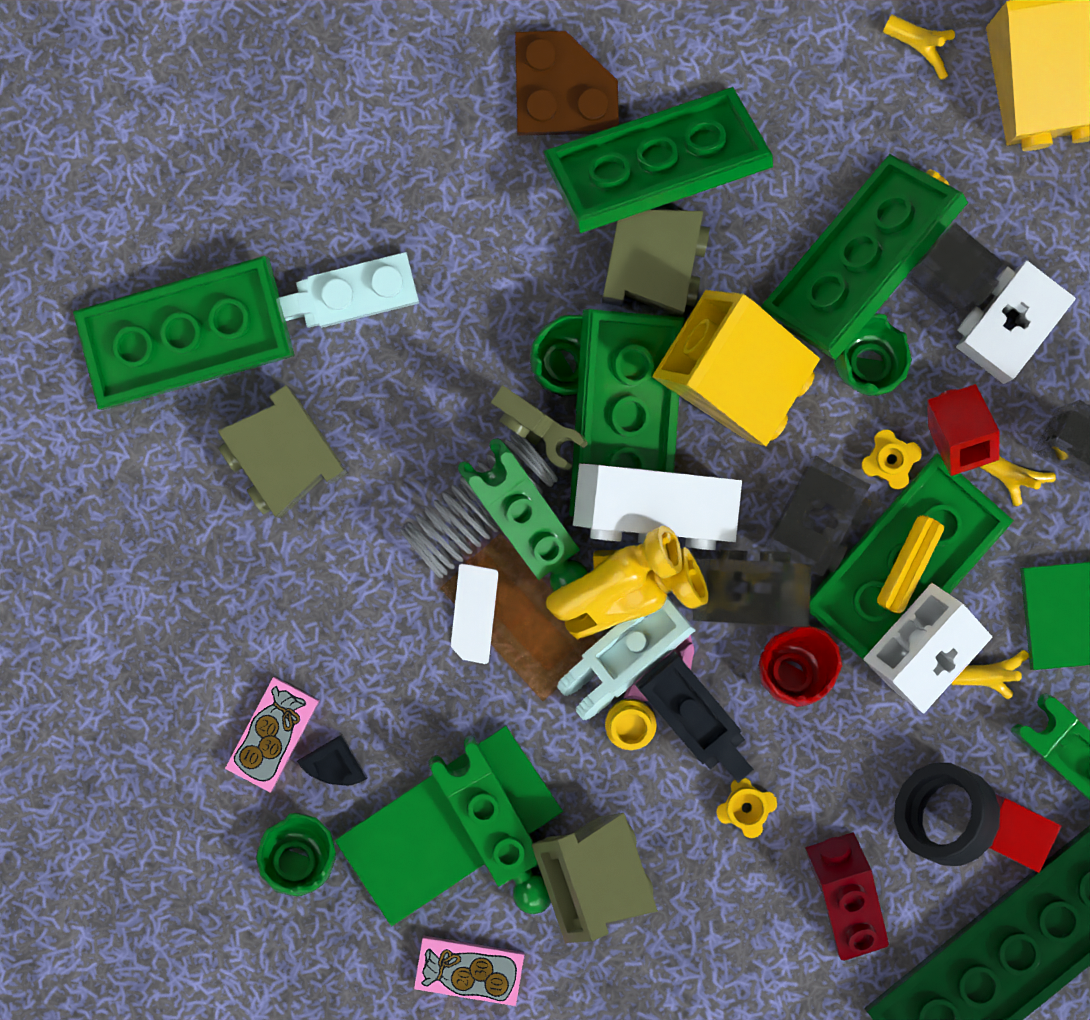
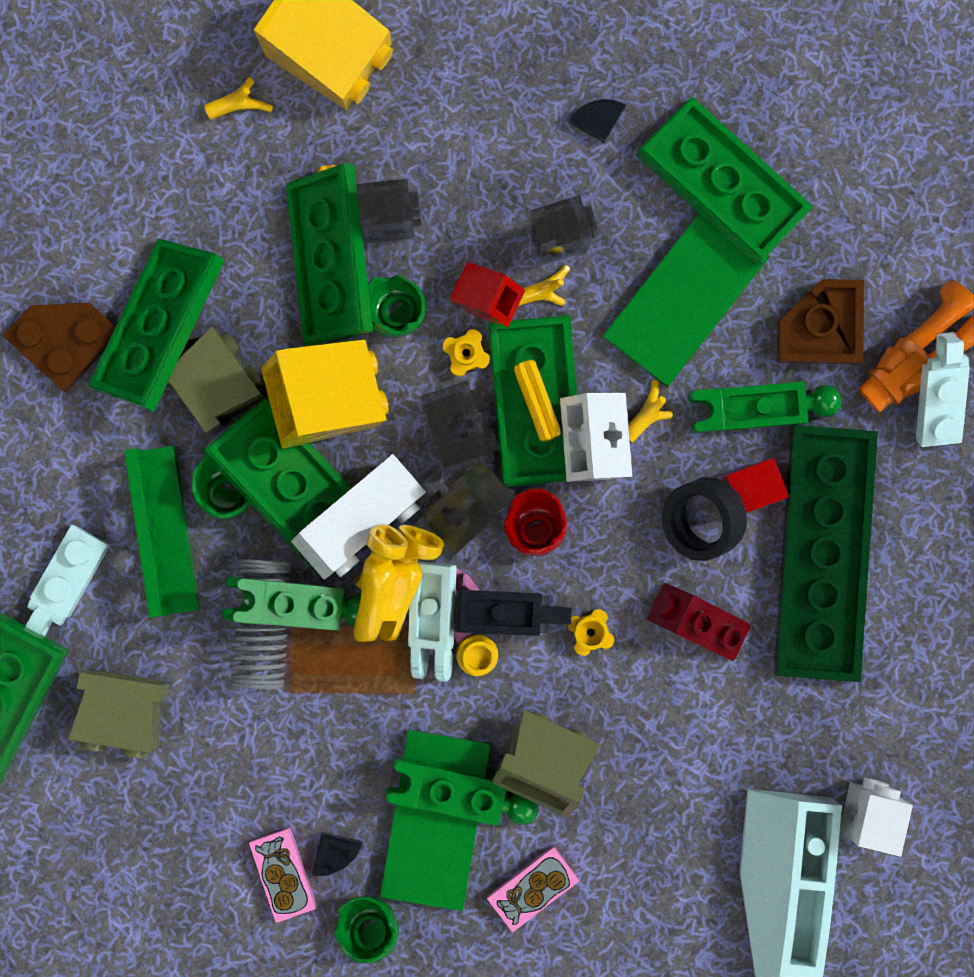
camera: 40 degrees left, 0 degrees up
(474, 612) = (323, 686): white sticker -> none
(477, 339) = (162, 531): none -> green fence
(535, 425) = (242, 546): olive plate -> none
(1039, 307) = (451, 179): white brick -> none

